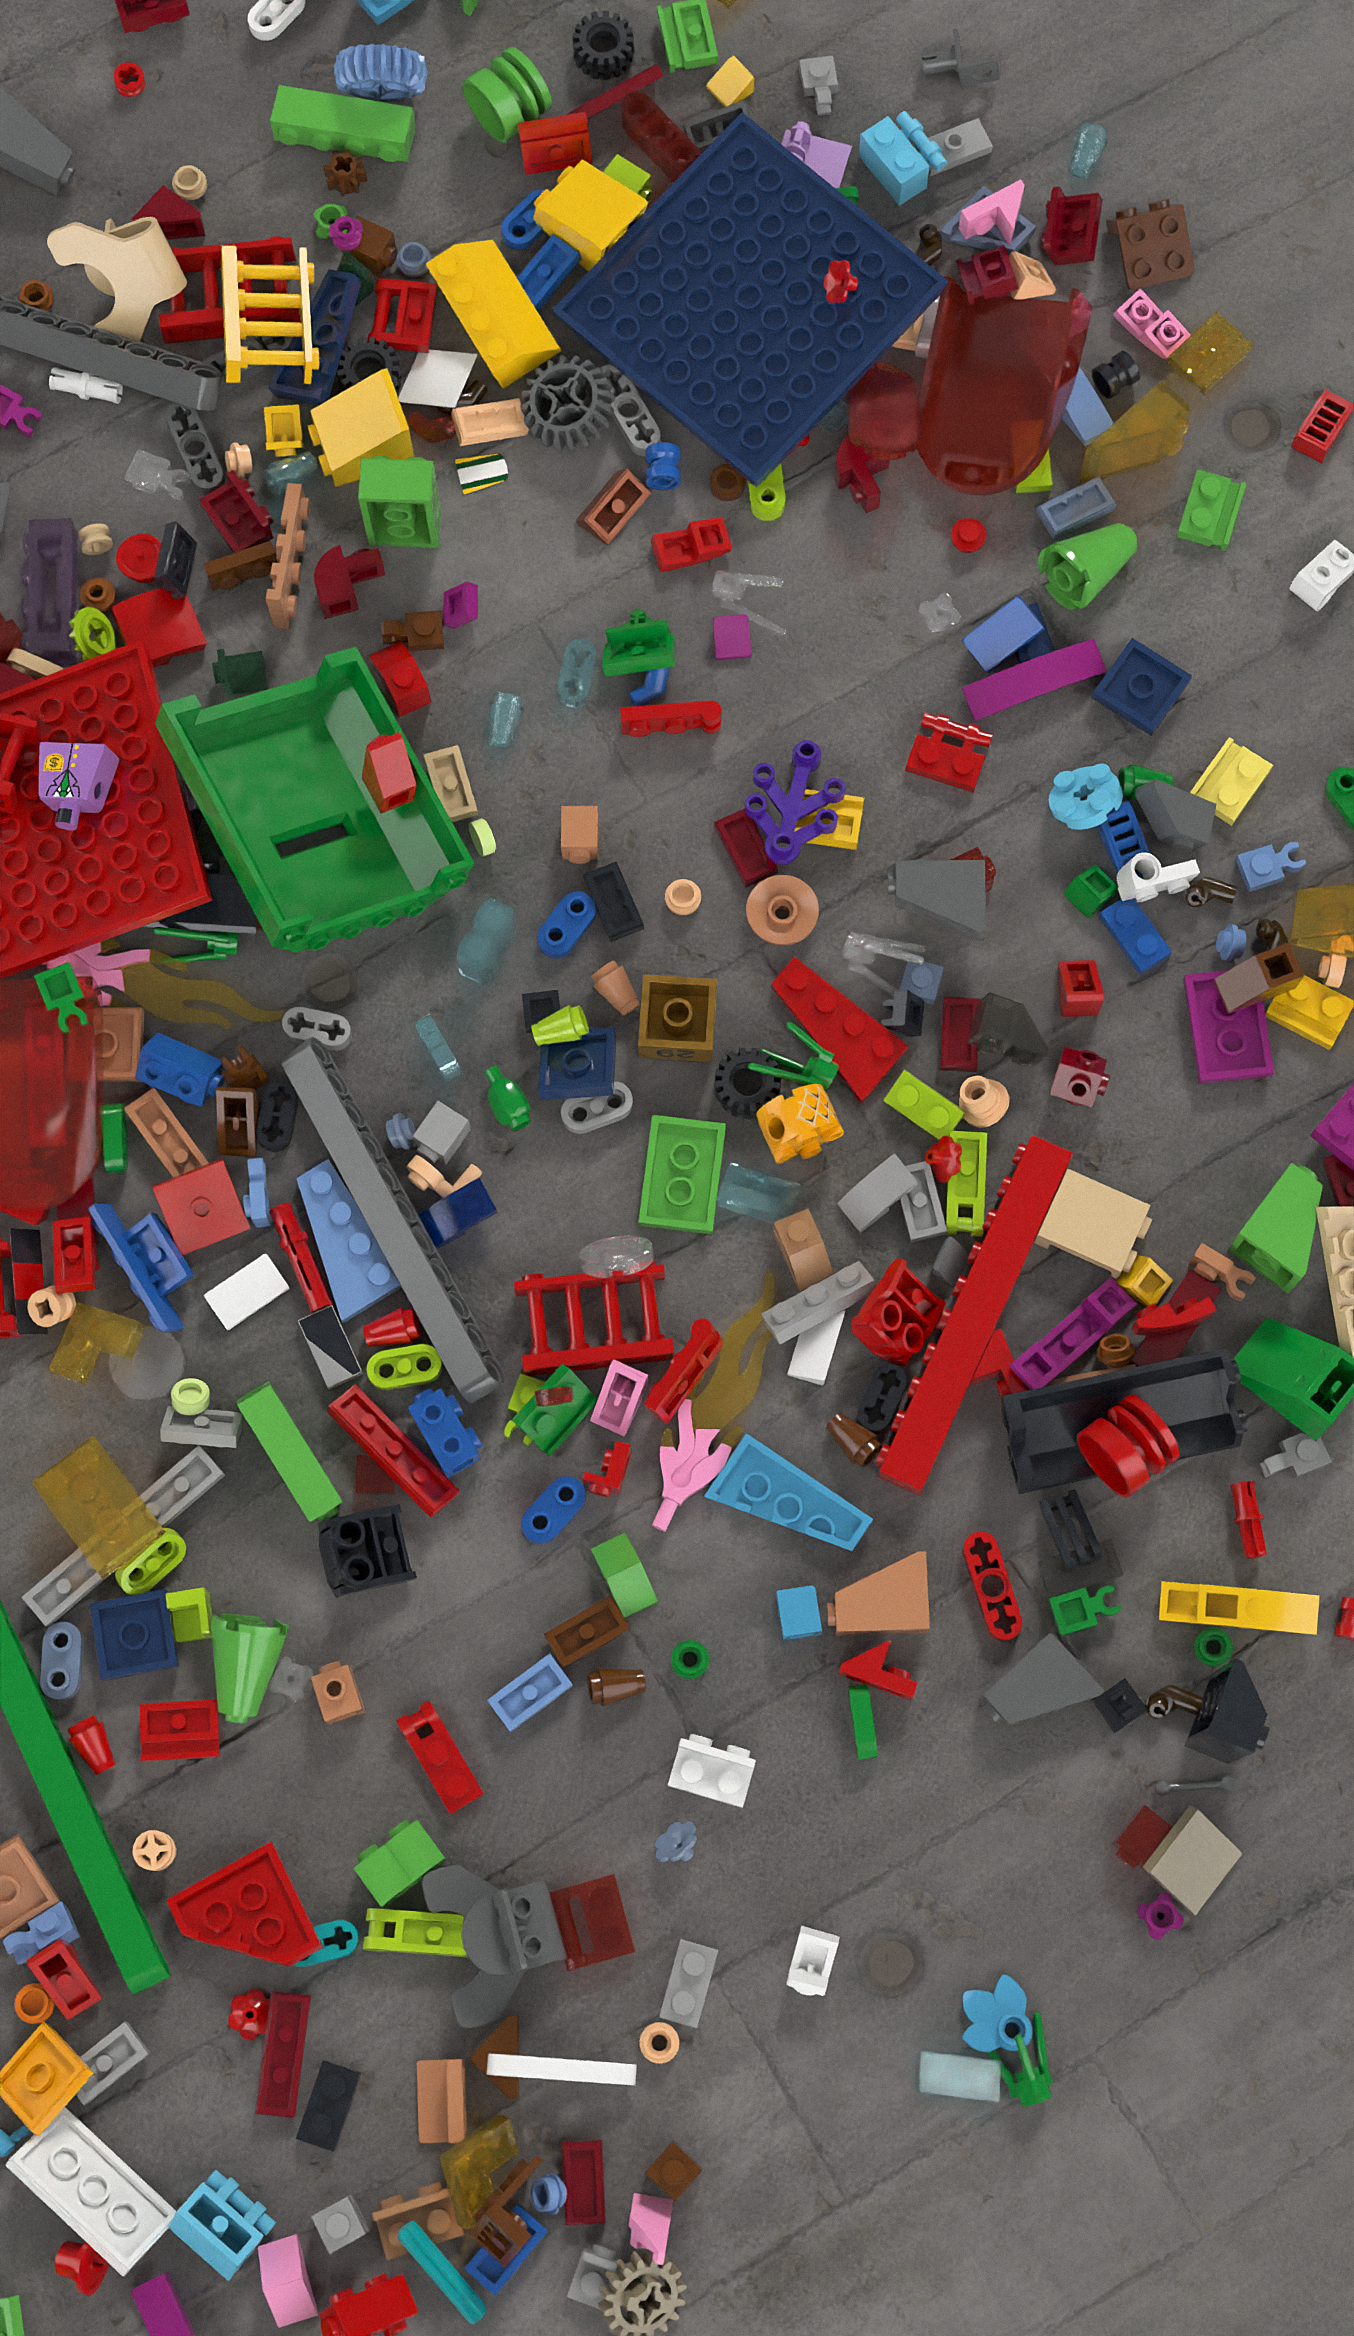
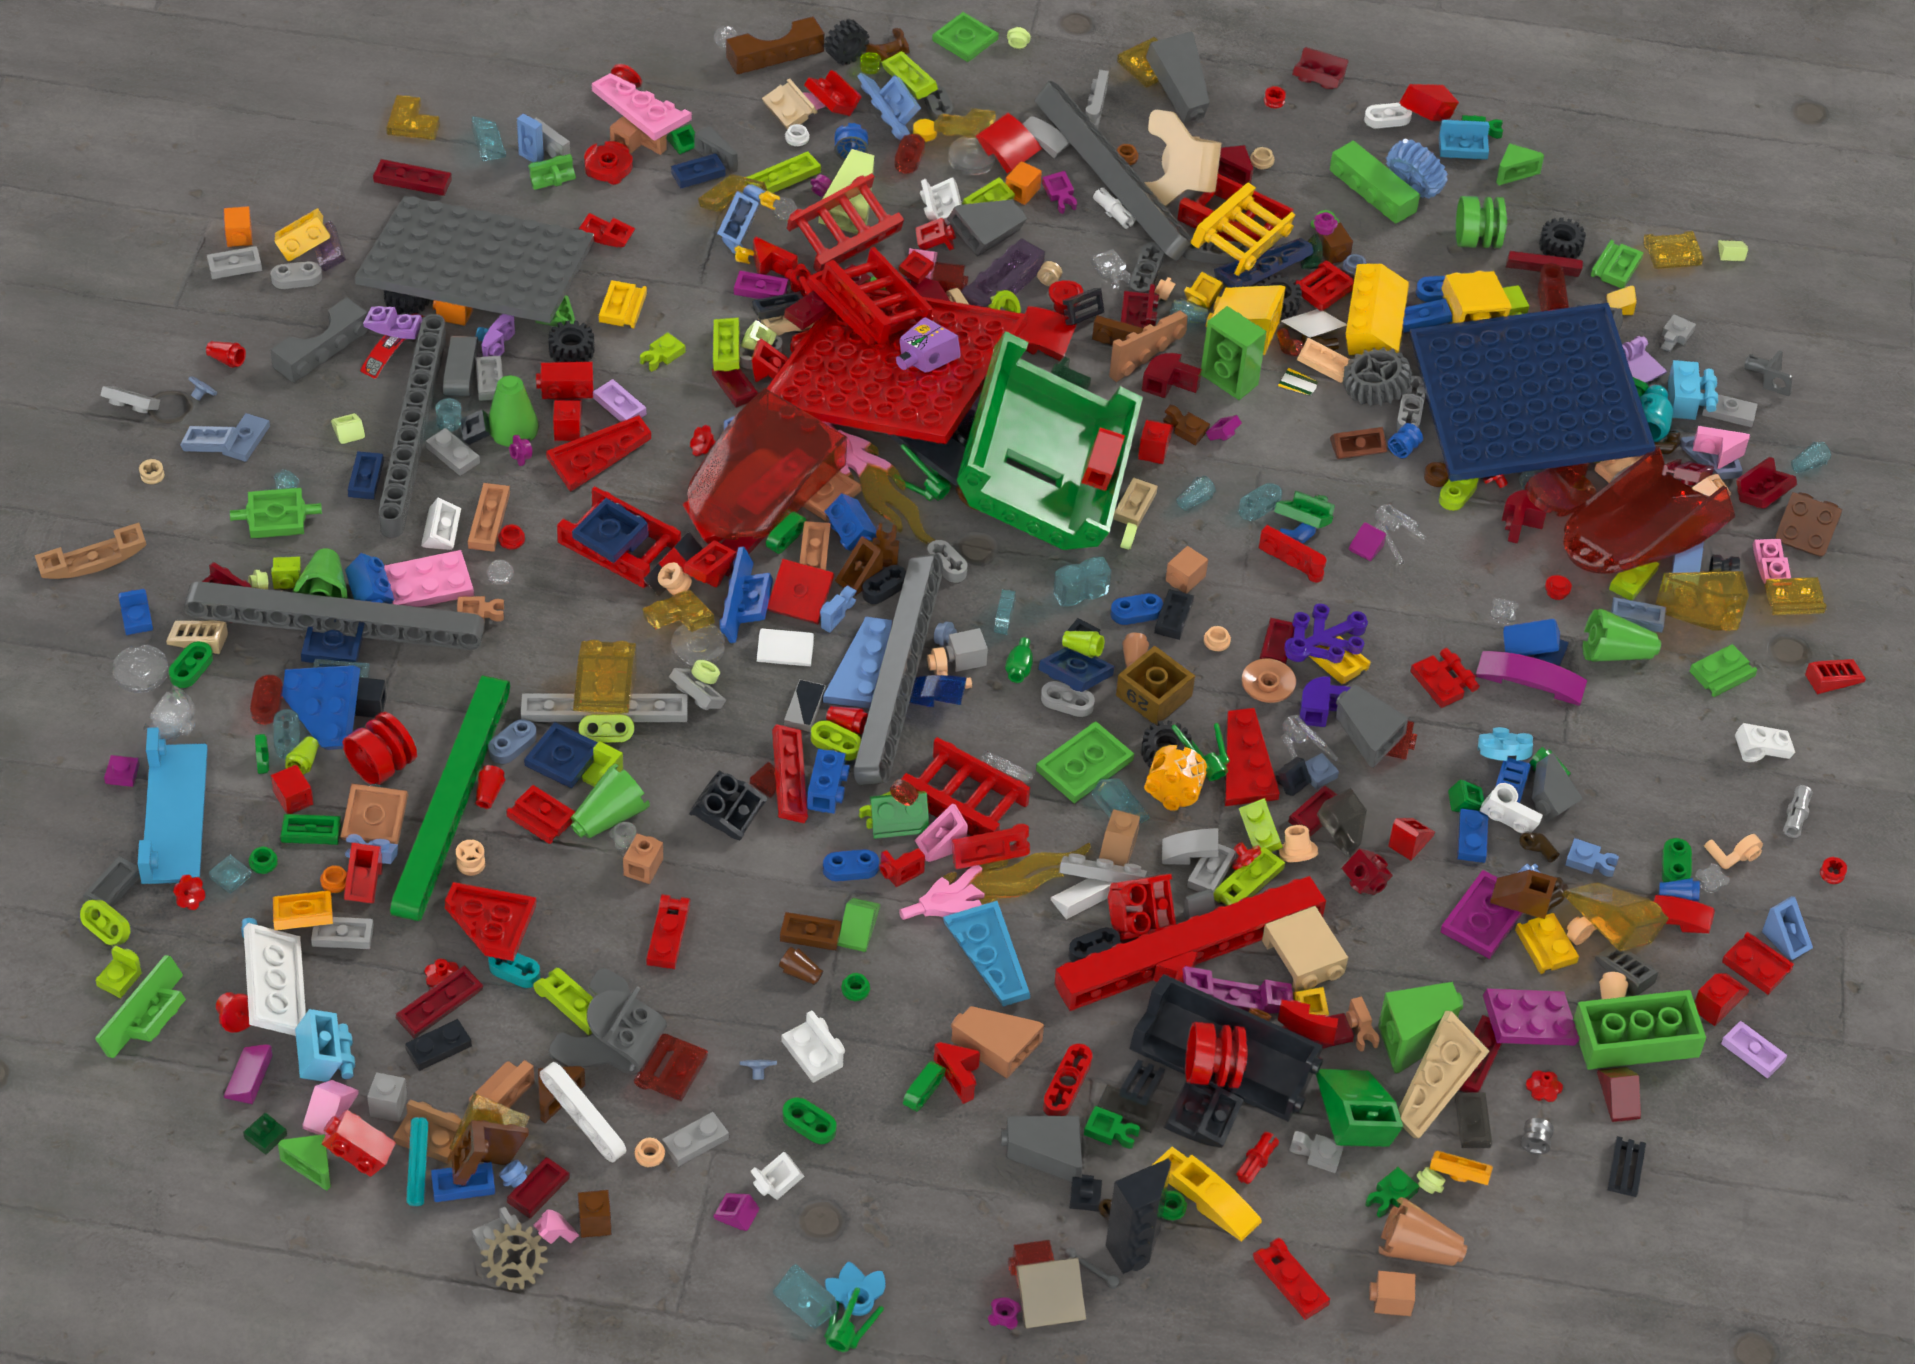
camera: 35 degrees right, 25 degrees down
(61, 990) = (822, 428): green plate -> none
(103, 602) = (1027, 298): dark orange plate -> none
(290, 1452) = (733, 725): bright green slope -> none
(300, 1257) = (834, 644): red pin -> none
(345, 173) = (1354, 205): reddish brown gear -> none
(398, 1863) = (588, 955): bright green brick -> none
(530, 1693) = (749, 936): medium blue plate -> none
(554, 143) = (1487, 257): red plate -> none
(691, 546) = (1393, 490): red slope -> none
(784, 1863) = (811, 1121): none -> green plate
(798, 1612) = (937, 1007): dark azure panel -> none
(802, 2031) = (737, 1210): none -> magenta slope
(839, 281) = (1589, 407): red plant -> none
(851, 892) = (1318, 700): none -> dark purple brick
(855, 1440) = (1057, 951): reddish brown cone -> none
(892, 213) = (1657, 411): none -> teal piece
(1141, 686) = (1594, 721): dark blue plate -> none
(1156, 1513) = (1204, 1114): none -> black slope
(1232, 780) = (1607, 803): light yellow plate -> none

